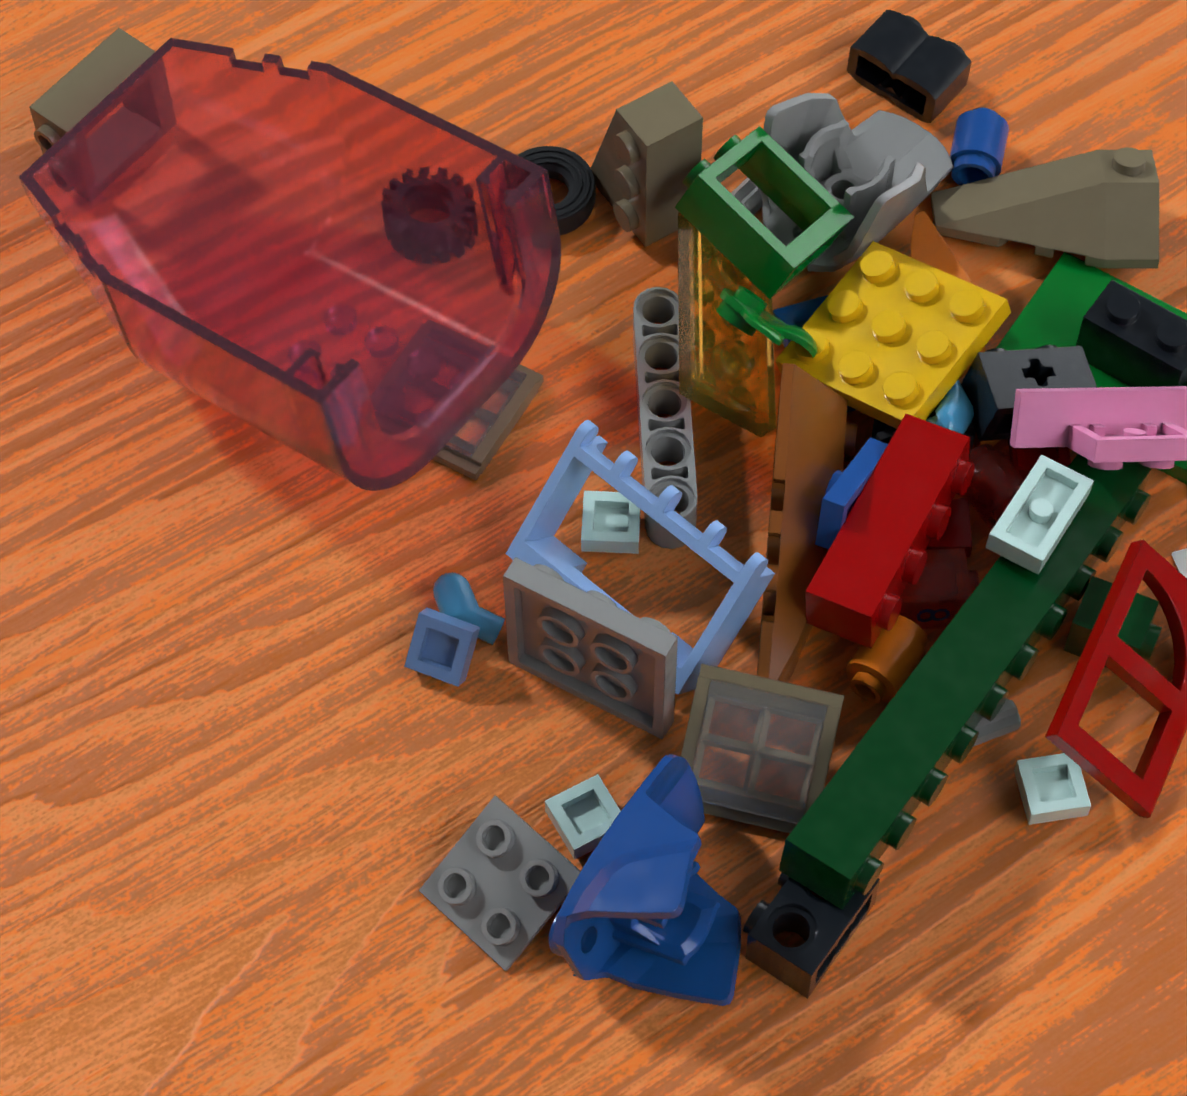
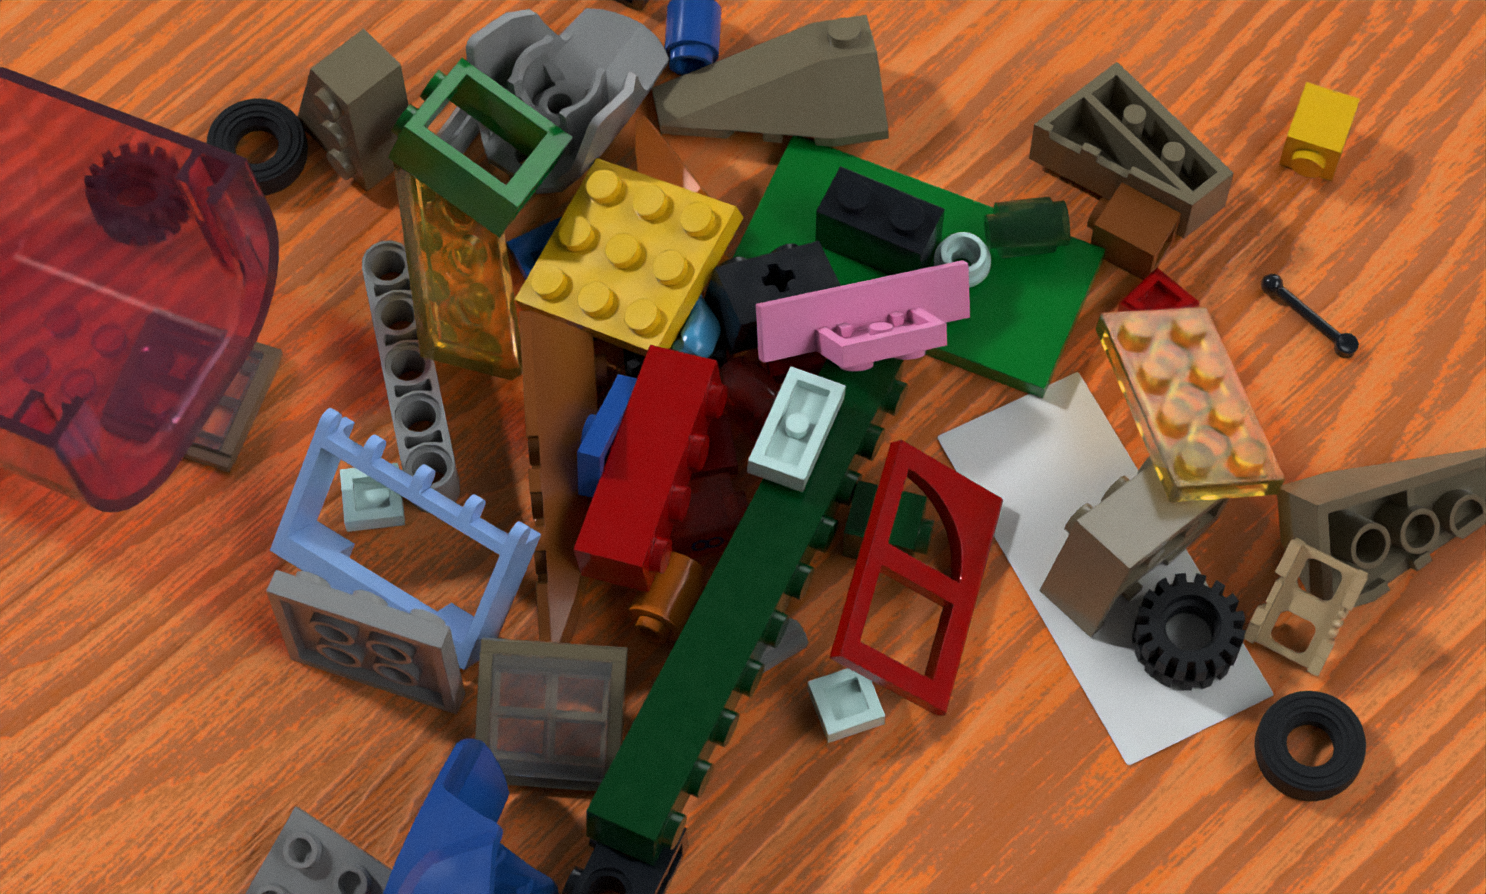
camera: 10 degrees left, 5 degrees up
(442, 646) = (220, 657): medium blue plate -> none
(457, 600) = (233, 613): dark azure arm -> none
(582, 815) = (387, 808): light aqua plate -> none
(747, 314) = (482, 261): green plate -> none

